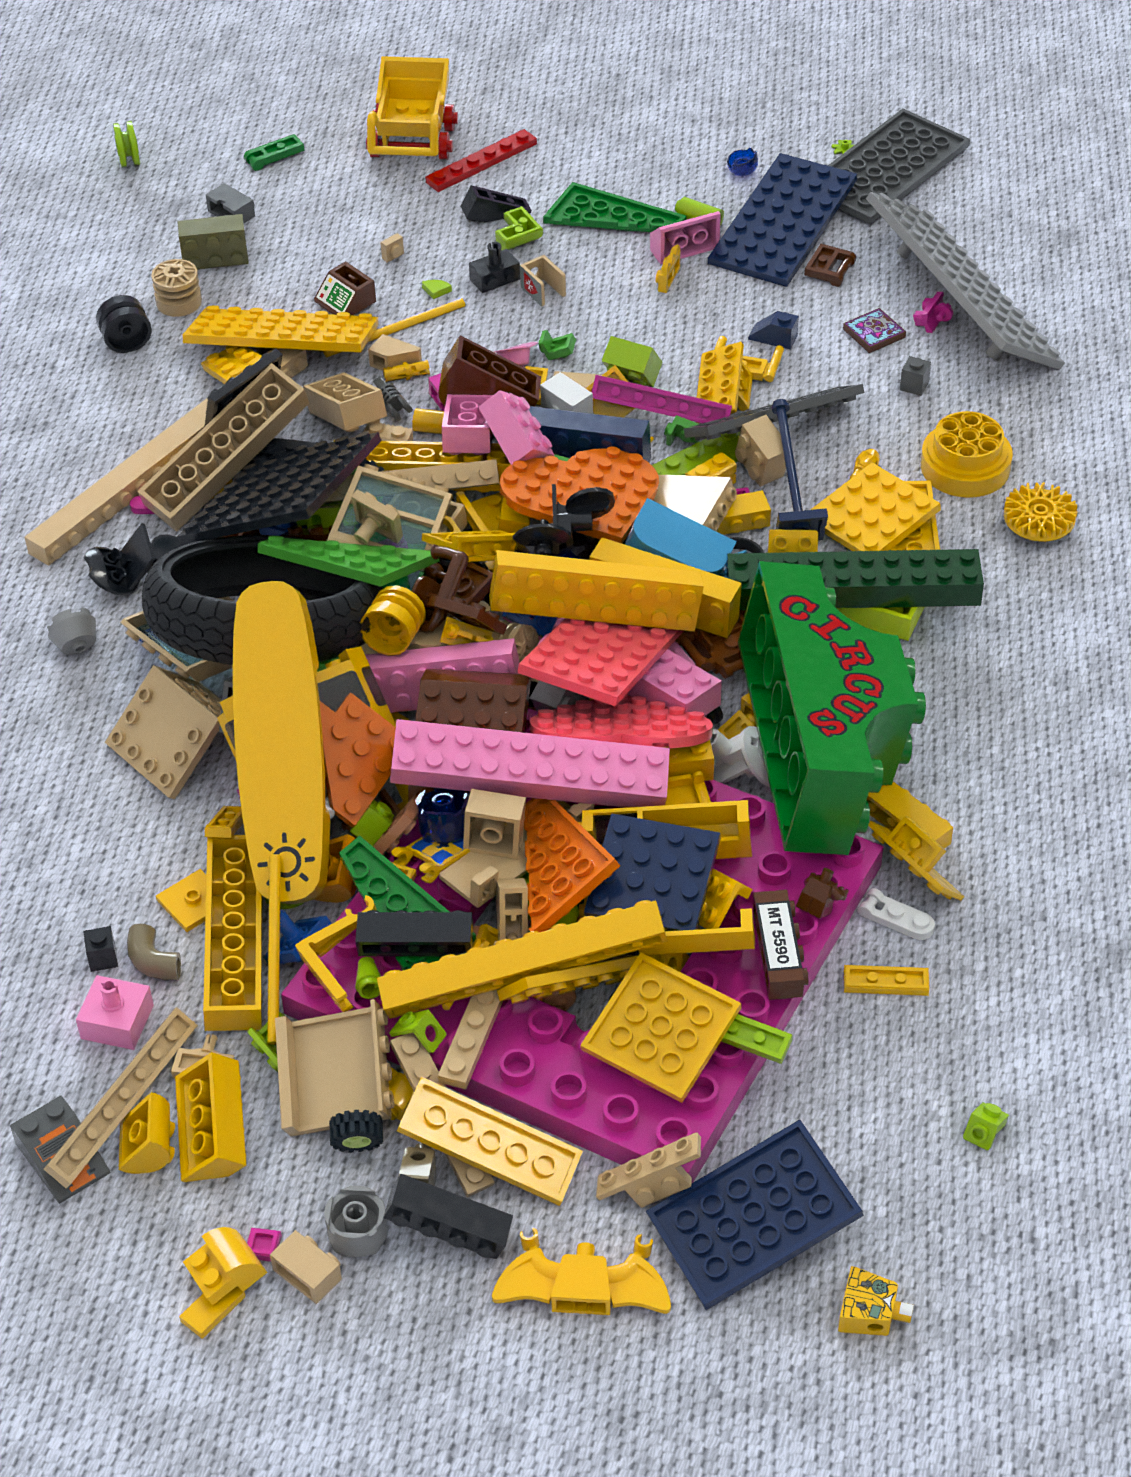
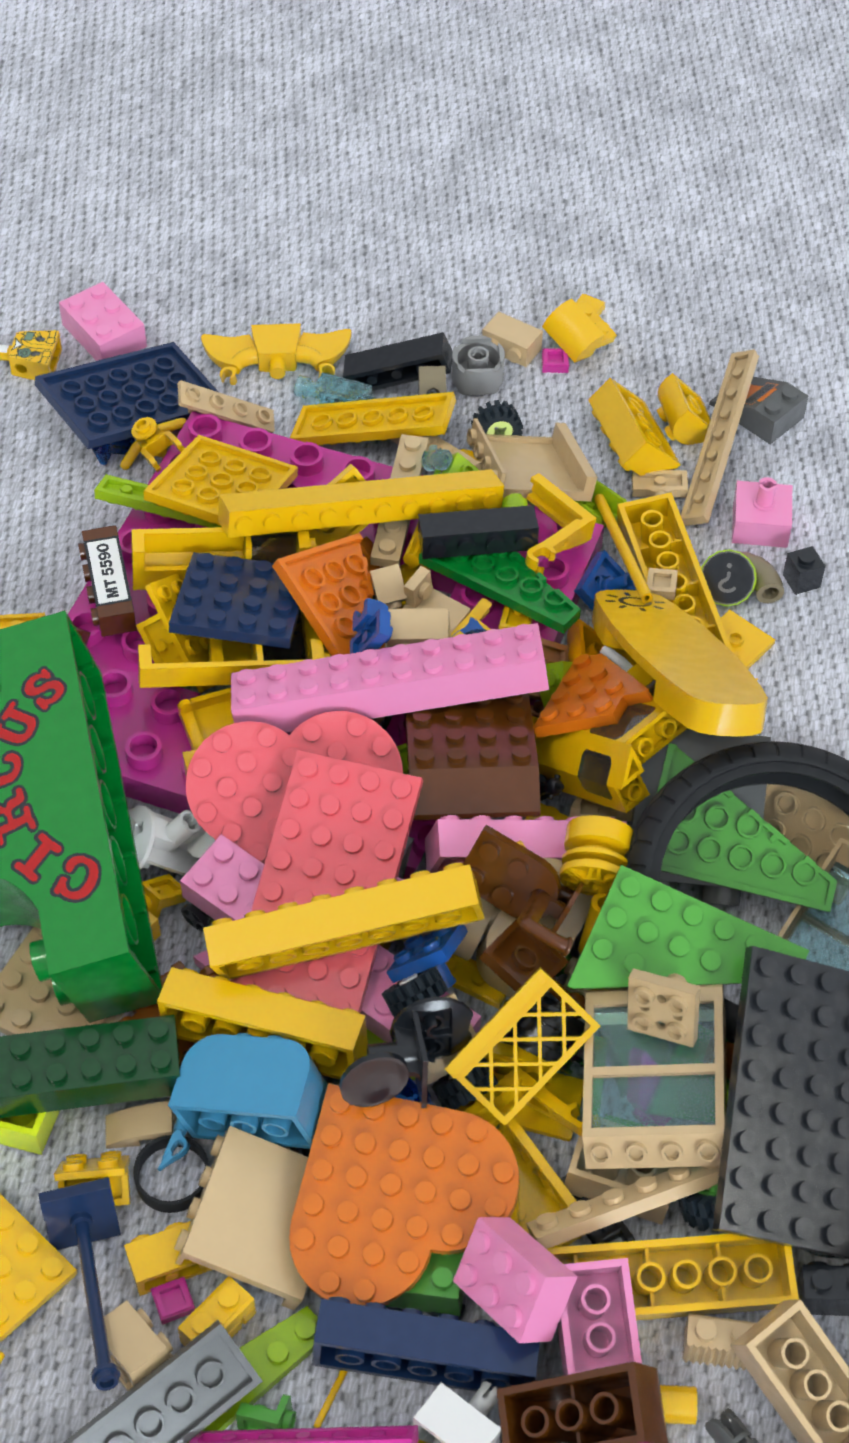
camera: 170 degrees right, 5 degrees up
(177, 942) = (729, 577): none -> black tile
(249, 906) = (663, 582): none -> tan plate
(436, 1032) = (436, 458): none -> clear light blue arm
(525, 1210) = (332, 389): none -> clear light blue brick
(540, 808) = (372, 626): none -> blue plate
(729, 1132) = (152, 441): none -> yellow piece
(788, 1338) = (102, 323): none -> bright pink brick

